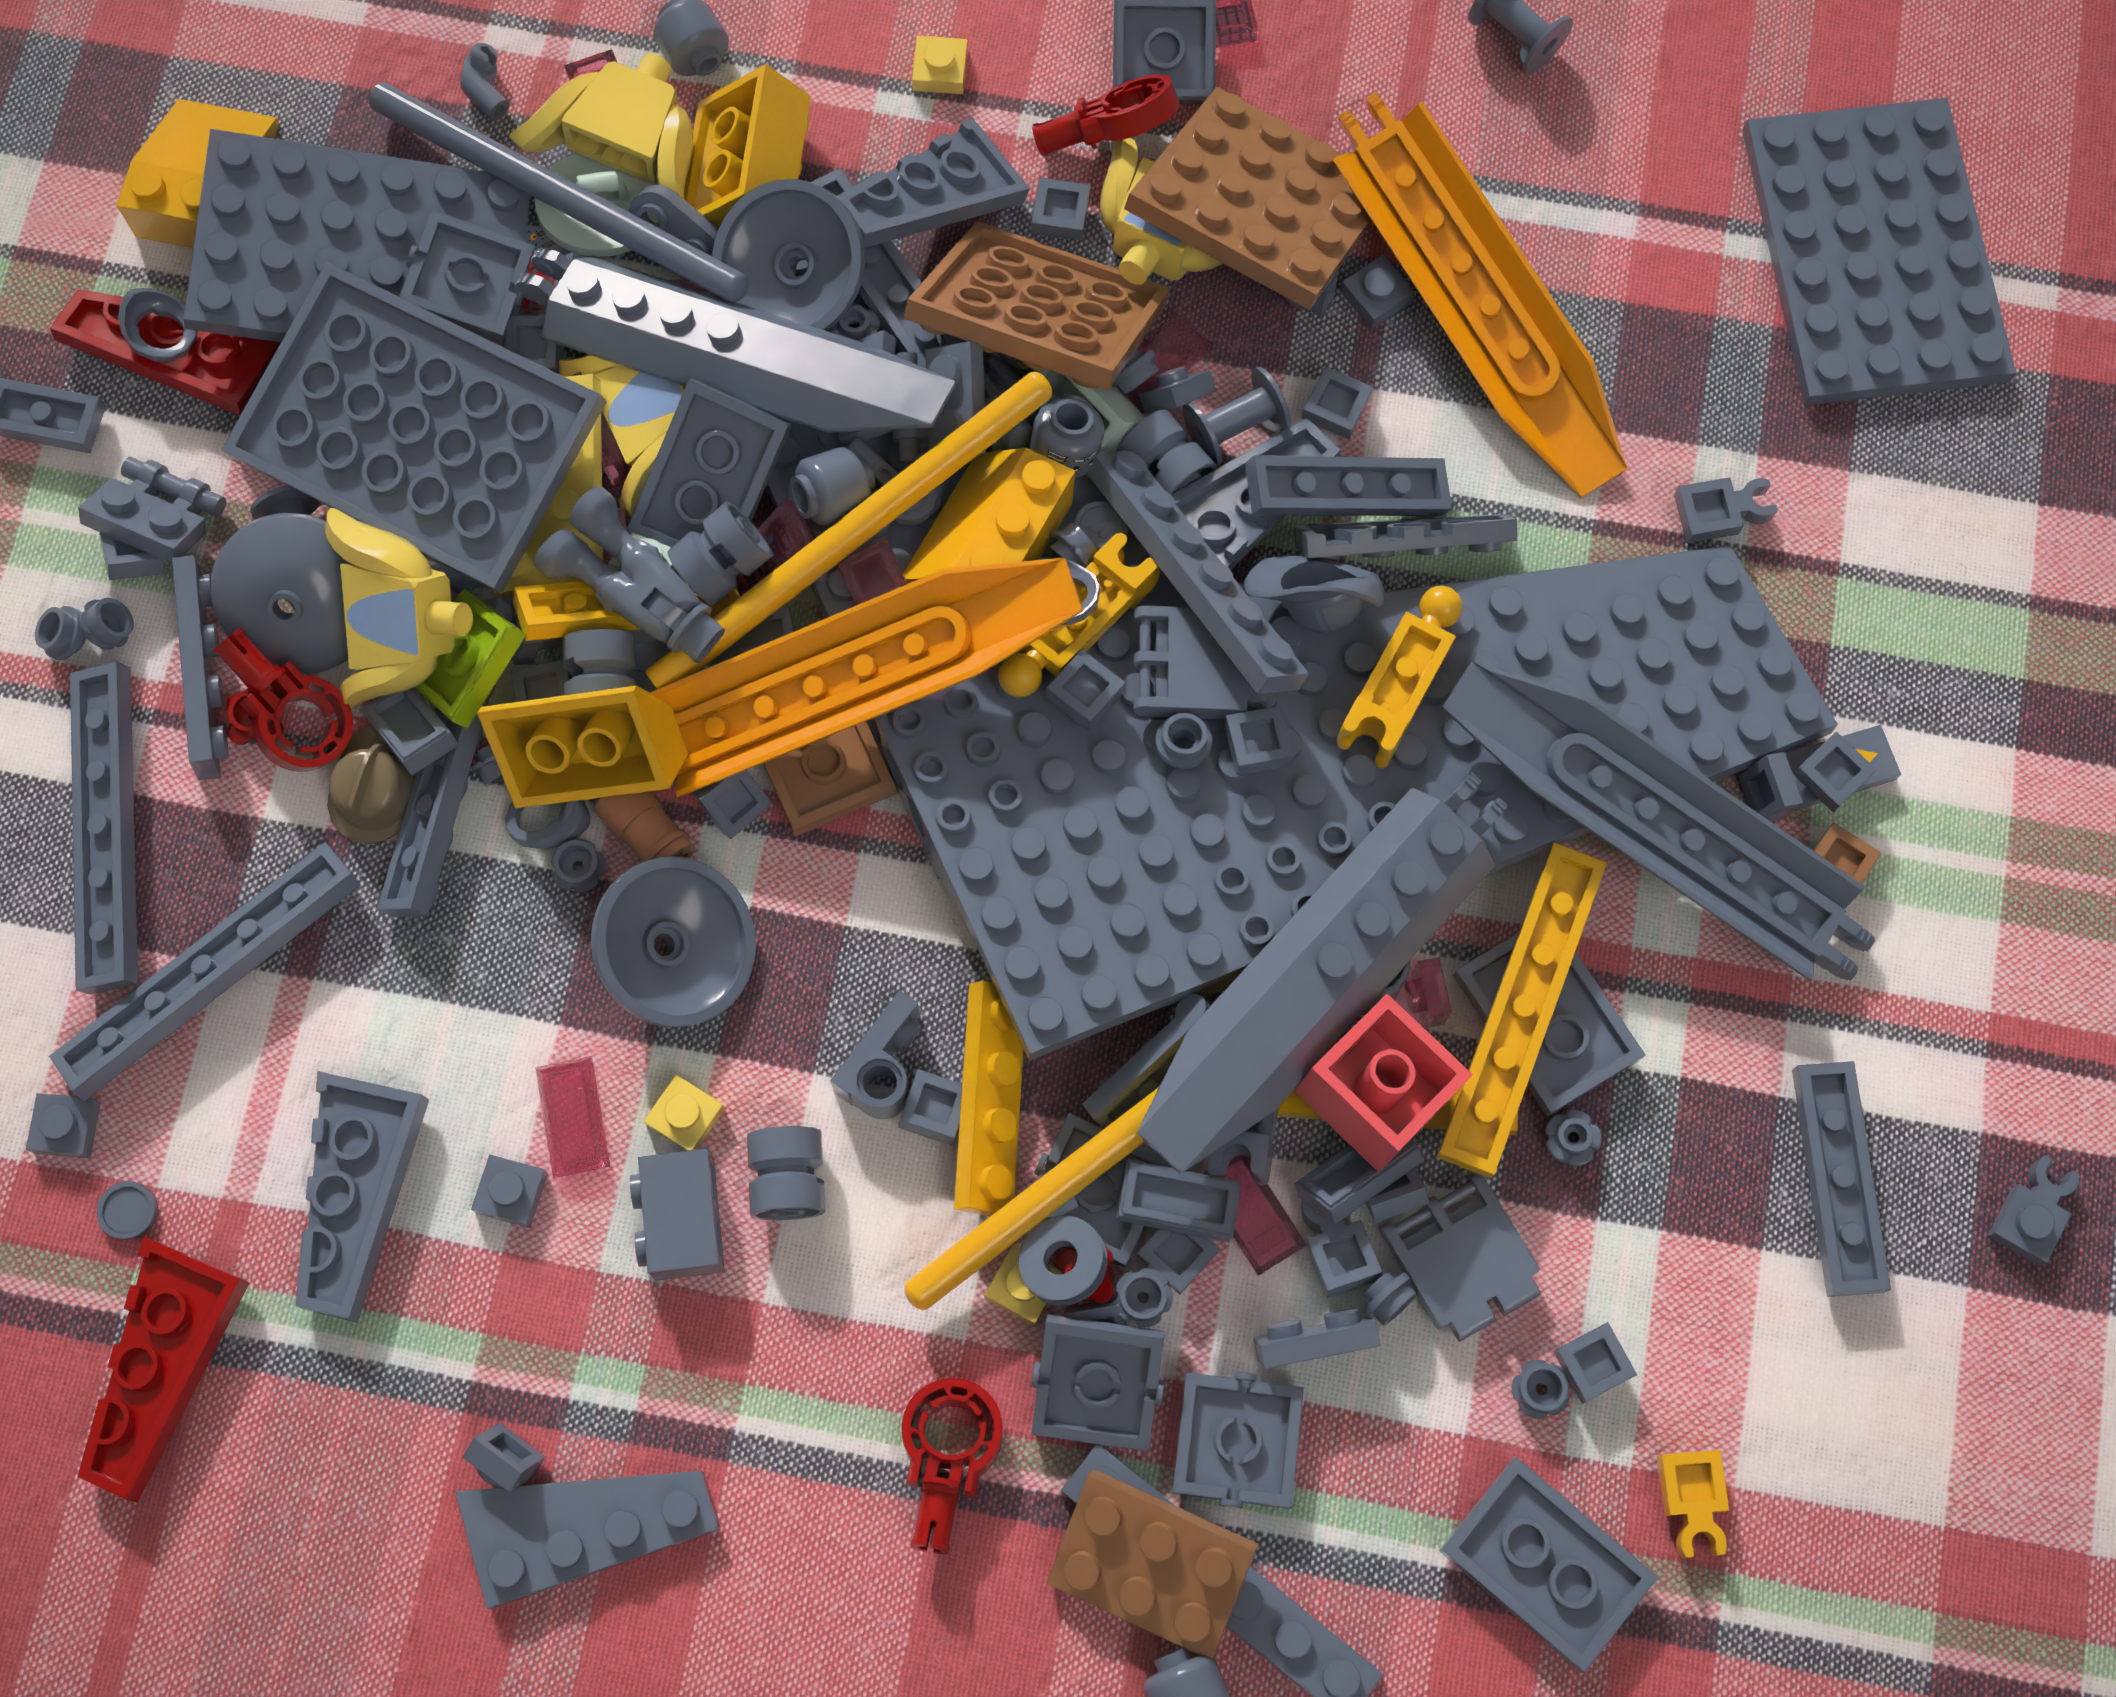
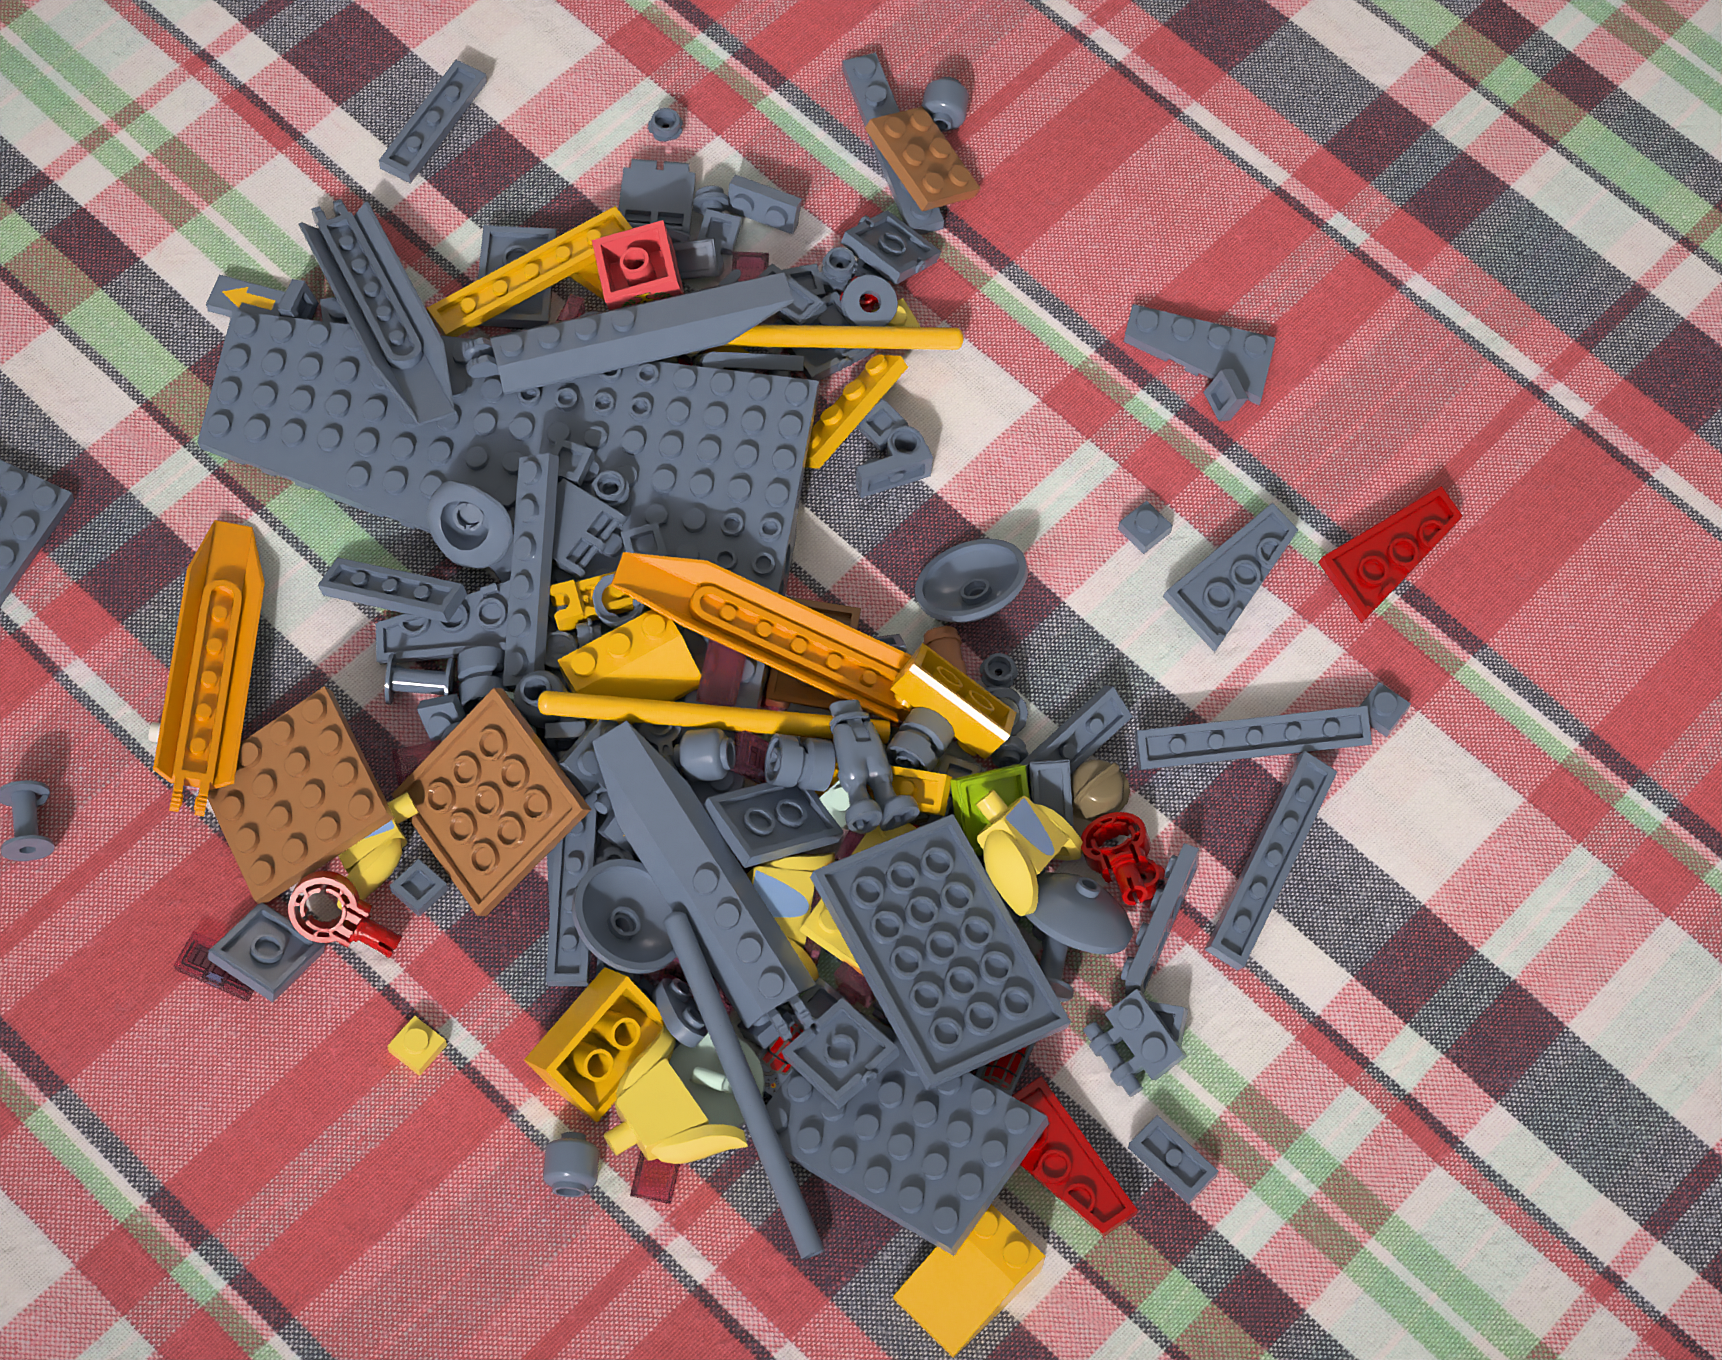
camera: 150 degrees left, 10 degrees down
(60, 632) = (1235, 999): sand blue plate -> none
(106, 623) = (1204, 988): sand blue plate -> none
(127, 1210) = (1368, 645): sand blue piece -> none
(142, 302) = (1074, 1179): sand blue piece -> none
(479, 79) = (738, 1230): sand blue arm -> none
(572, 1117) = (1086, 546): clear pink tile -> none
(678, 1215) = (1058, 453): sand blue brick -> none
(684, 1114) = (1022, 508): light yellow plate -> none
(785, 1170) = (987, 436): sand blue wheel -> none
(938, 1493) = (987, 257): red pin -> none
(940, 186) = (493, 932): sand blue wing -> none
(1238, 1440) = (838, 189): sand blue plate -> none
(1337, 402) = (350, 660): sand blue plate -> none
(1377, 291) = (262, 711): sand blue plate -> none
(1385, 537) = (379, 543): sand blue wing -> none
(1403, 674) = (458, 454): yellow plate -> none
(1548, 1564) = (725, 56): sand blue plate -> none
(1559, 1145) = (562, 219): sand blue plate -> none
(1595, 1362) = (629, 118): sand blue plate -> none
(1695, 1489) = (629, 44): yellow plate -> none
(1717, 511) = (185, 467): sand blue plate -> none
(1834, 771) = (258, 287): sand blue plate -> none
(1847, 852) = (293, 254): medium nougat plate -> none
(2031, 1218) = (351, 53): sand blue plate -> none

